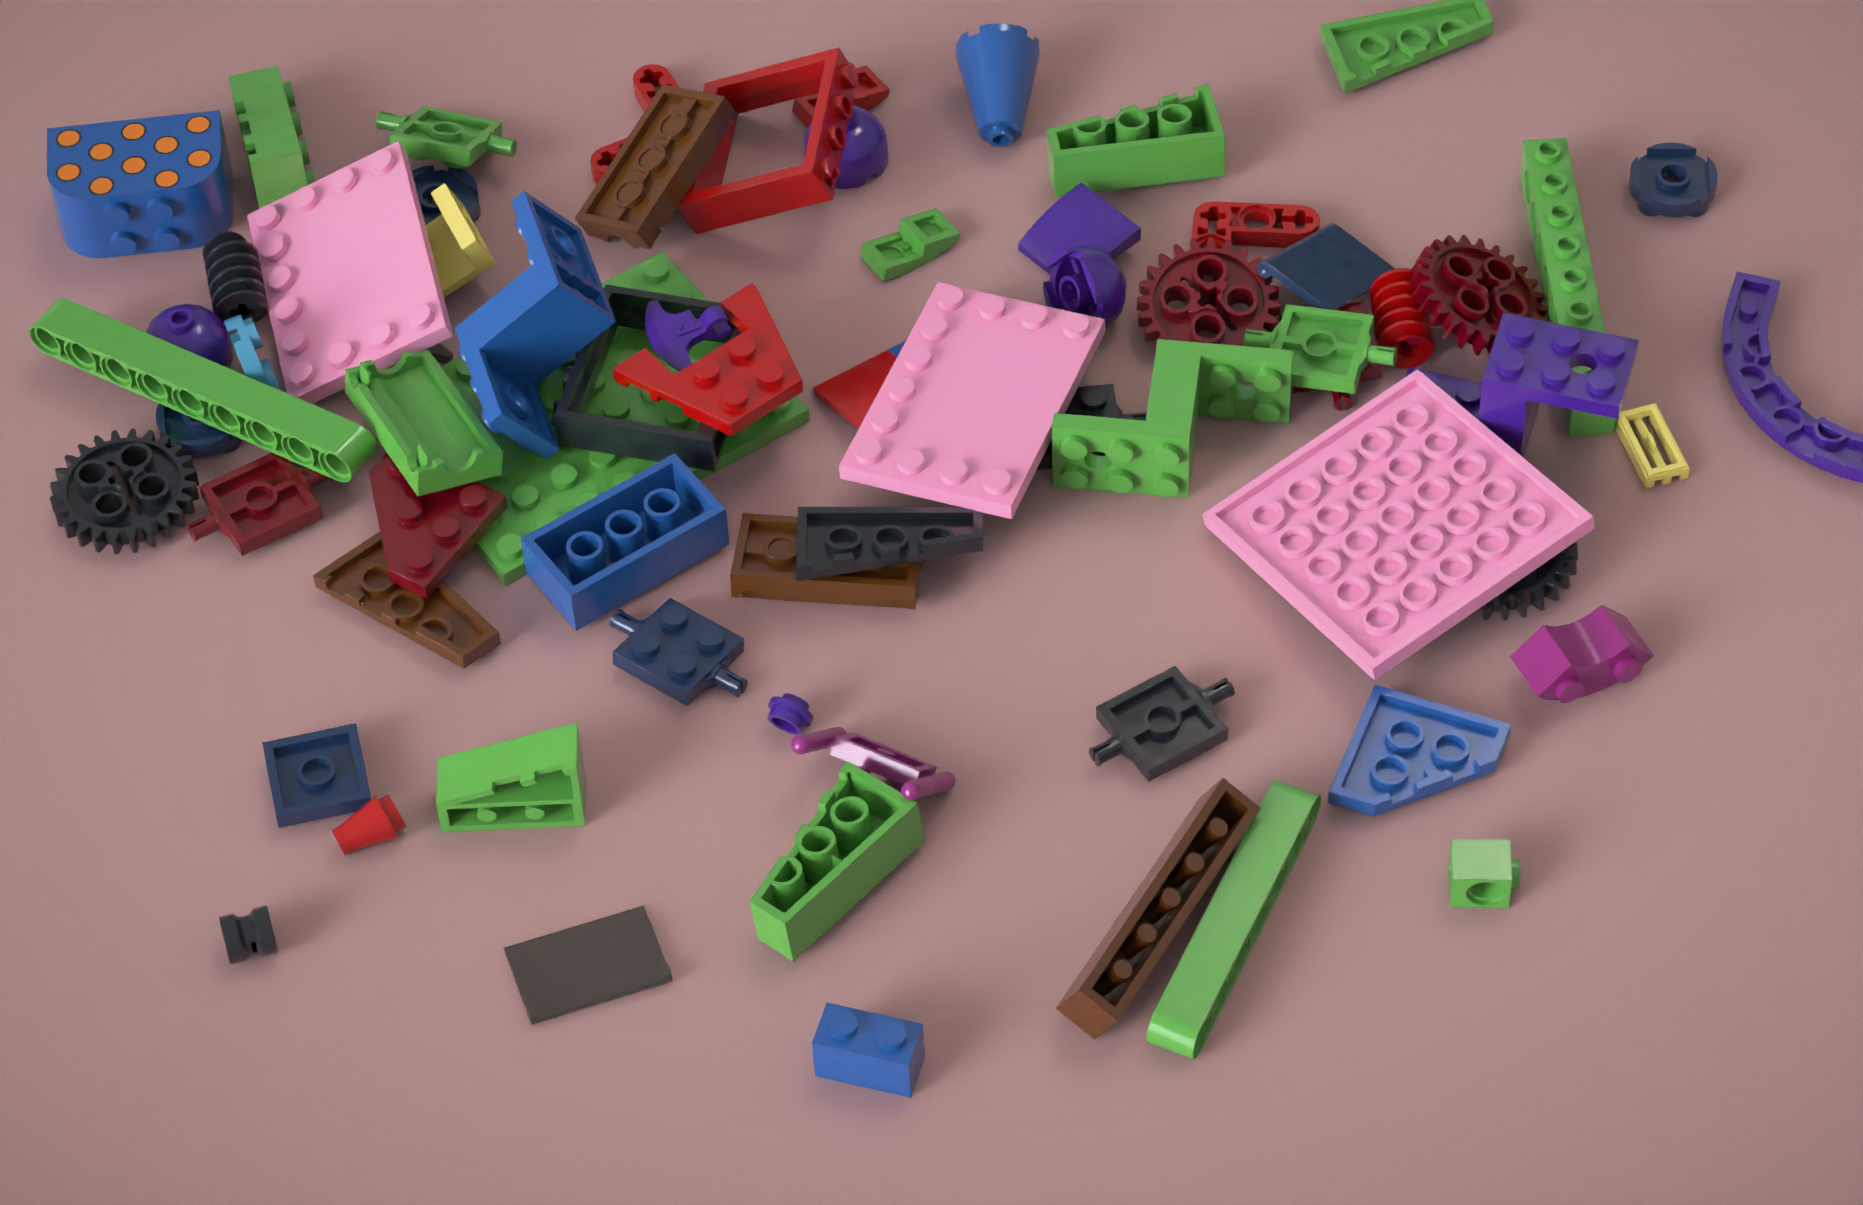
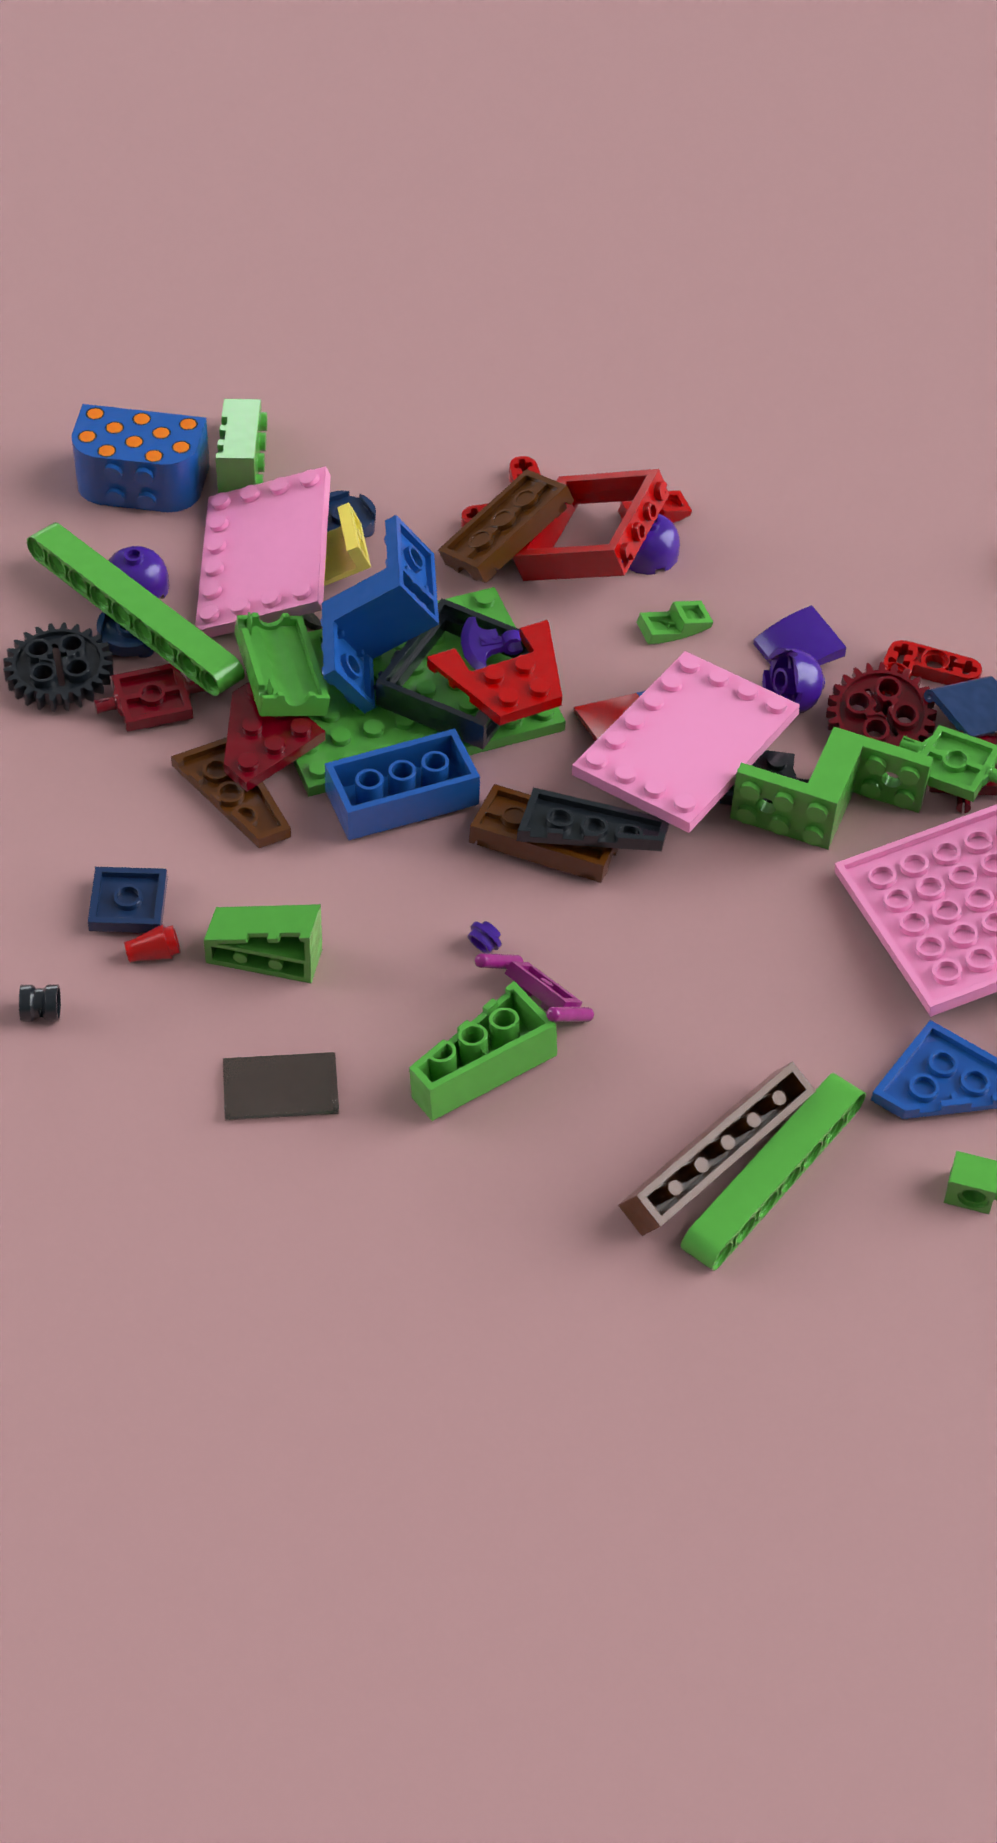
camera: 10 degrees right, 0 degrees up
(234, 277) = (184, 538): black piece -> none
(245, 344) = (173, 589): dark azure plate -> none
(446, 136) = (364, 473): bright green plate -> none
(678, 652) = (418, 873): dark blue plate -> none
(868, 1049) = (467, 1201): blue brick -> none
(998, 79) = (772, 519): blue cone -> none
(1140, 147) = (862, 589): bright green wedge -> none
(1162, 723) = (760, 1010): black plate -> none

